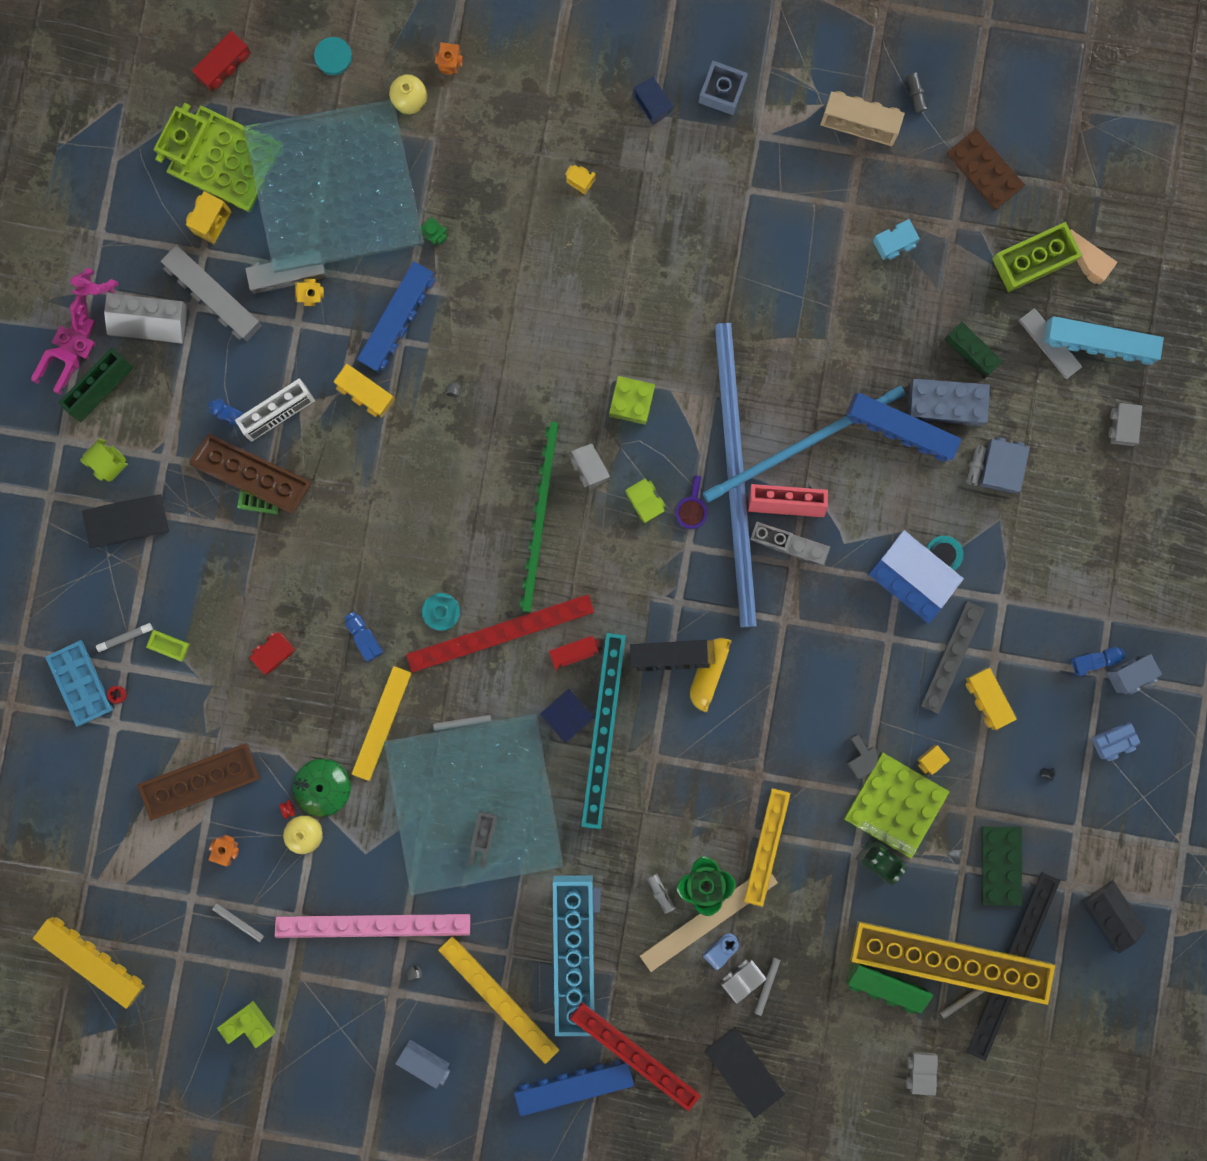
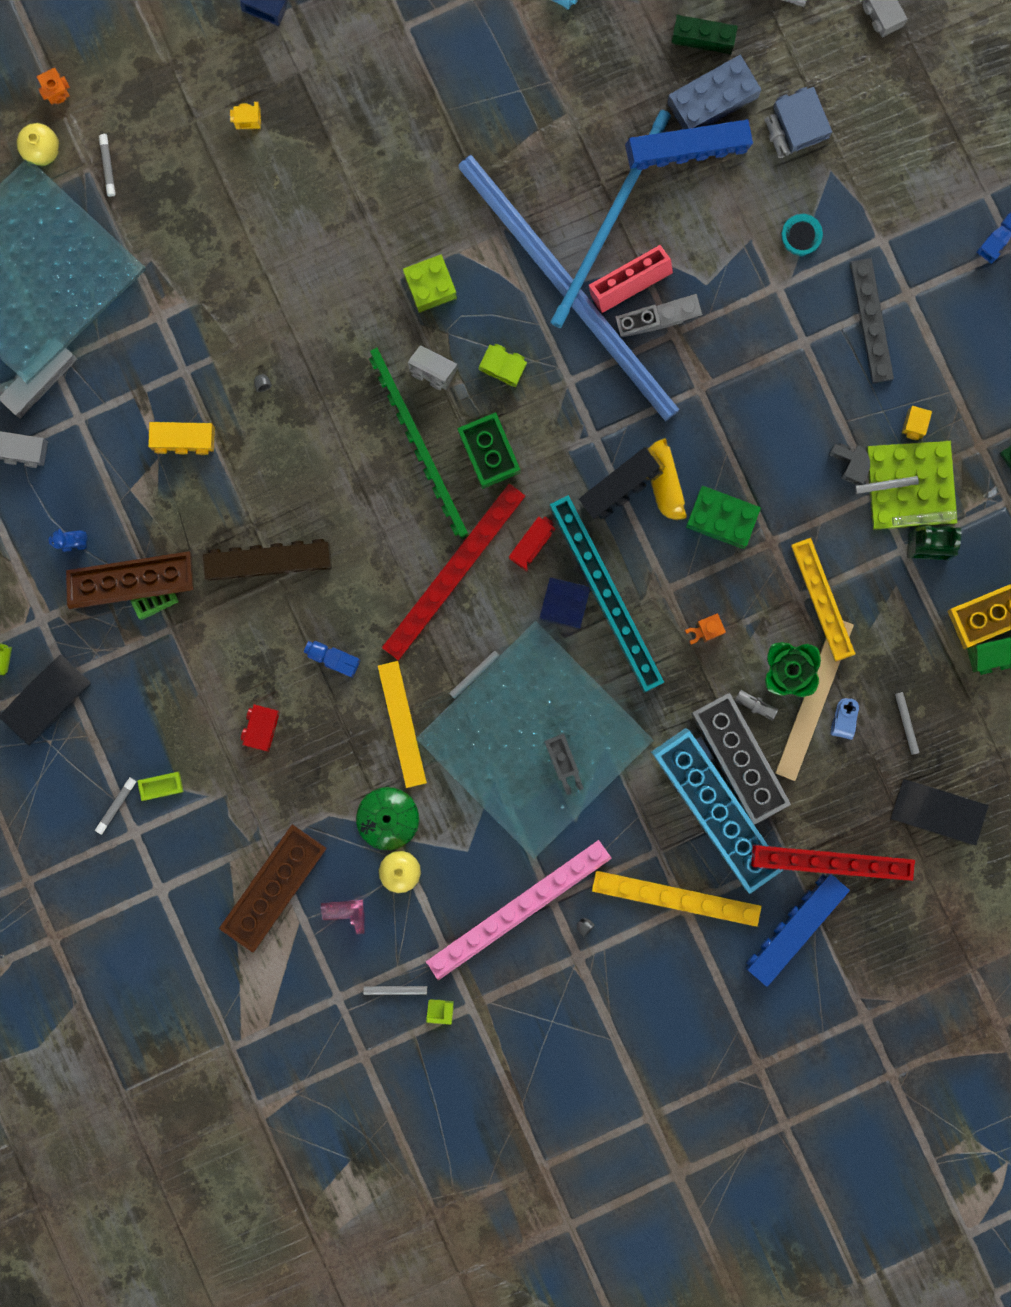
camera: 30 degrees left, 0 degrees up
(79, 683) = (103, 874): dark azure plate -> none
(89, 962) = (284, 1117): yellow brick -> none
(114, 689) = (139, 857): red bush -> none
(220, 856) = (330, 936): orange brick -> none
(246, 838) = (346, 910): none -> clear pink bracket
(248, 1021) = (466, 1070): lime brick -> none
(260, 963) = (440, 1011): none -> lime panel
(275, 410) = (113, 507): white brick -> none
(287, 809) = (370, 858): red bush -> none
(302, 288) = (64, 385): yellow brick -> none
(367, 531) = (267, 561): none -> dark brown brick
(396, 318) = (165, 352): blue brick -> none
(423, 1064) = (649, 1000): sand blue brick -> none
(434, 232) = (147, 252): green bracket -> none
(441, 611) = (387, 588): teal tile -> none
(449, 145) = (107, 165): none -> light grey bar
(589, 559) = (489, 450): none -> green brick
(619, 927) = (740, 758): none -> light grey brick
(663, 810) = (707, 629): none -> orange brick
(692, 511) = (550, 347): piece -> none
(733, 732) = (723, 517): none -> green brick
(743, 980) = (882, 732): light grey brick -> none
(875, 792) = (886, 485): none -> light grey bar
(915, 576) = (790, 271): slope -> none
(990, 699) = (930, 334): yellow brick -> none

